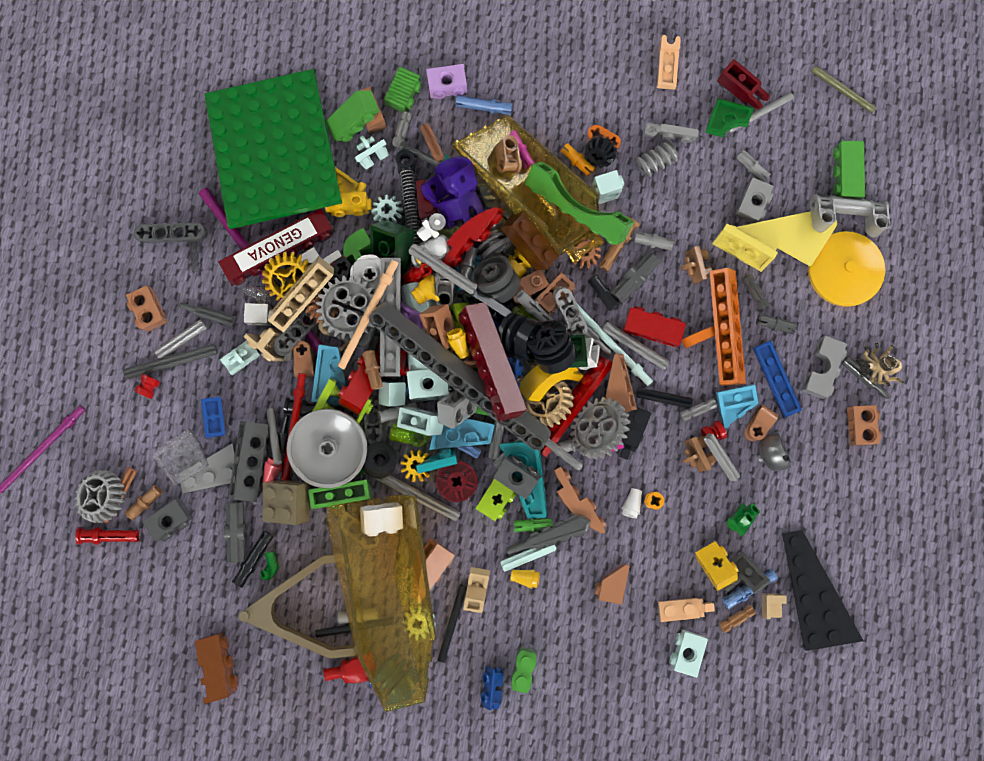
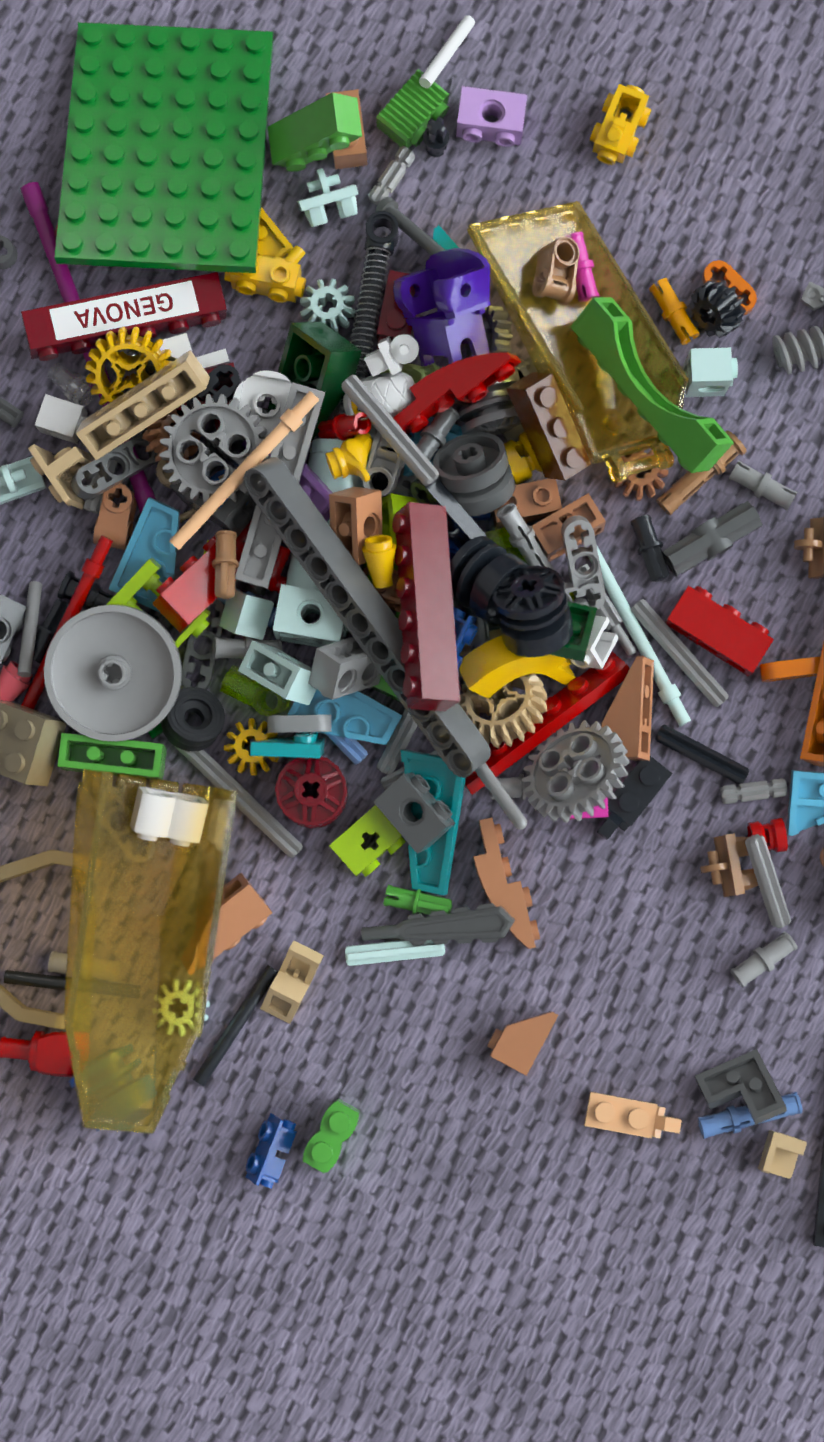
camera: 20 degrees right, 0 degrees up
(356, 246) = (259, 352): bright green brick -> none
(412, 53) = (446, 51): none -> white bar
(420, 101) = (436, 137): none -> black axle
(432, 142) = (435, 213): nougat axle -> none
(438, 446) = (299, 723): none -> light grey beam
(485, 105) = (555, 179): medium blue pin -> none
(518, 71) = (615, 136): none -> yellow brick
(528, 578) = (381, 986): yellow cone -> none
(632, 504) = (594, 916): white cone -> none
(660, 502) = (641, 926): light orange bush -> none
(691, 664) = (609, 1210): light aqua brick -> none
(718, 576) = (703, 1076): yellow brick -> none
(731, 500) = (763, 959): none -> light grey pin
(737, 618) = (714, 1158): medium nougat axle -> none
(743, 518) = (773, 993): green hips -> none

